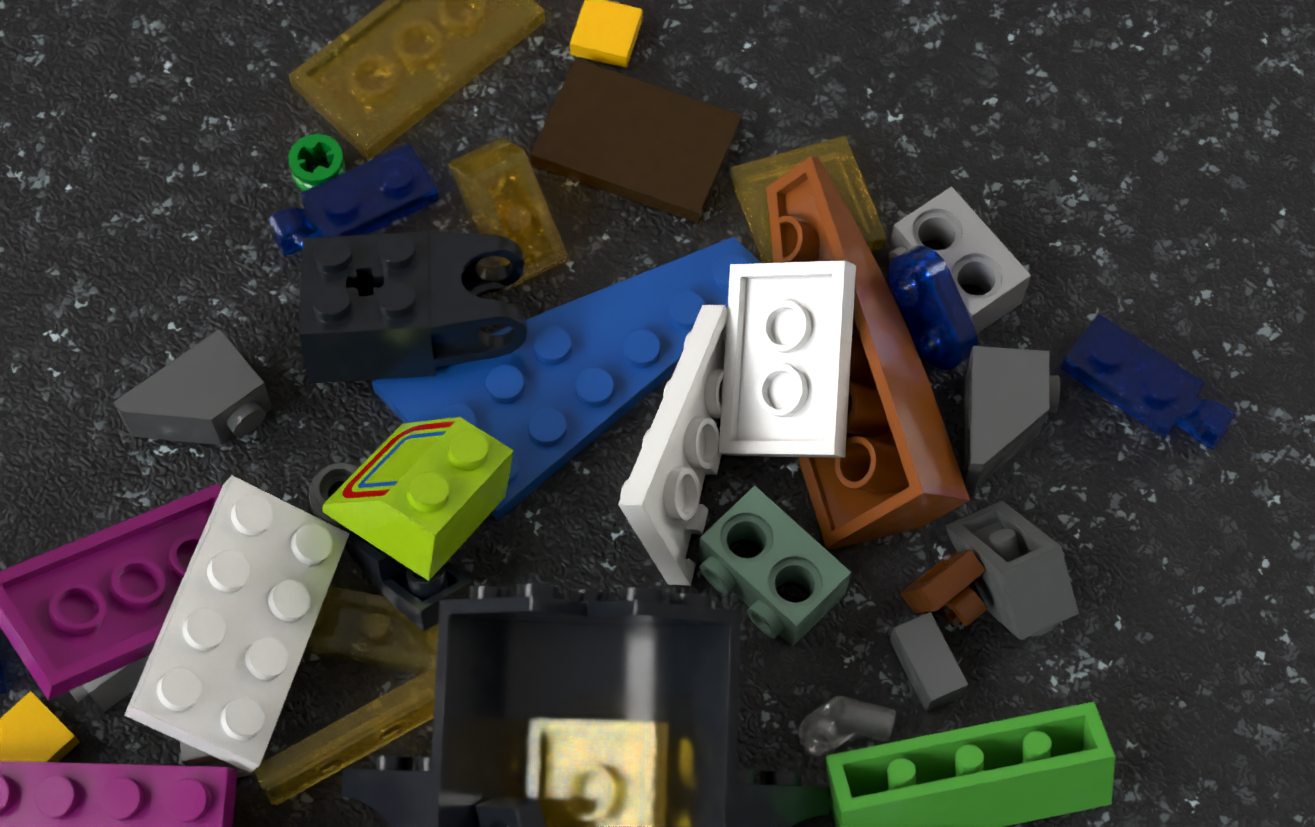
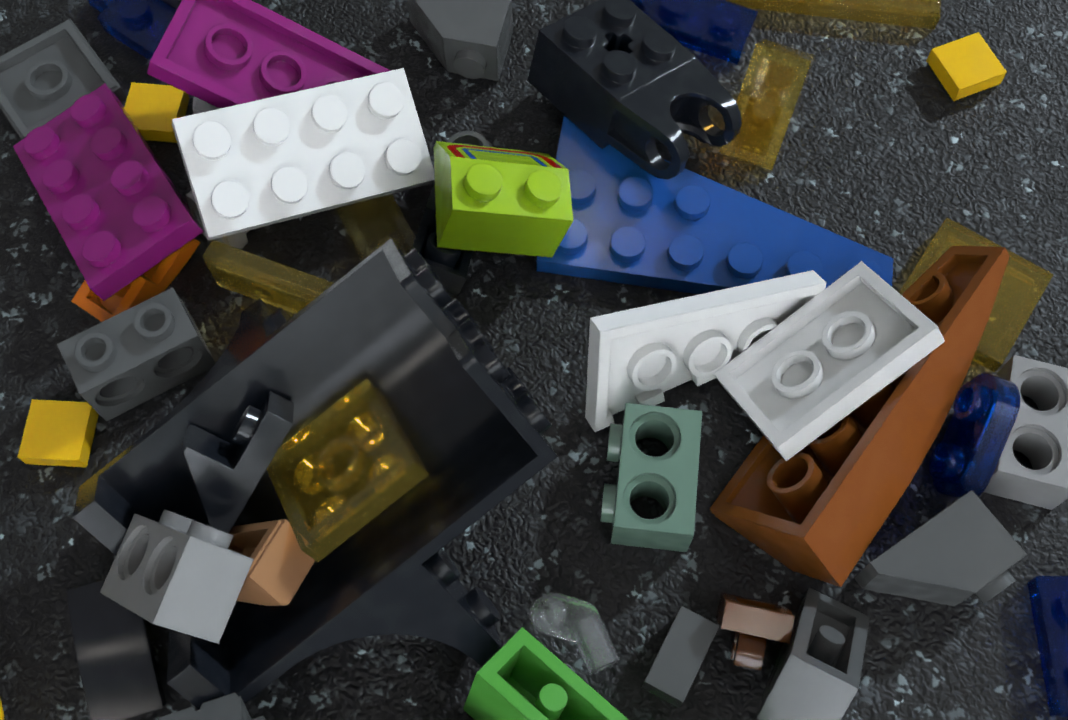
camera: 55 degrees right, 0 degrees up
(636, 140) = (905, 146): dark brown tile -> none

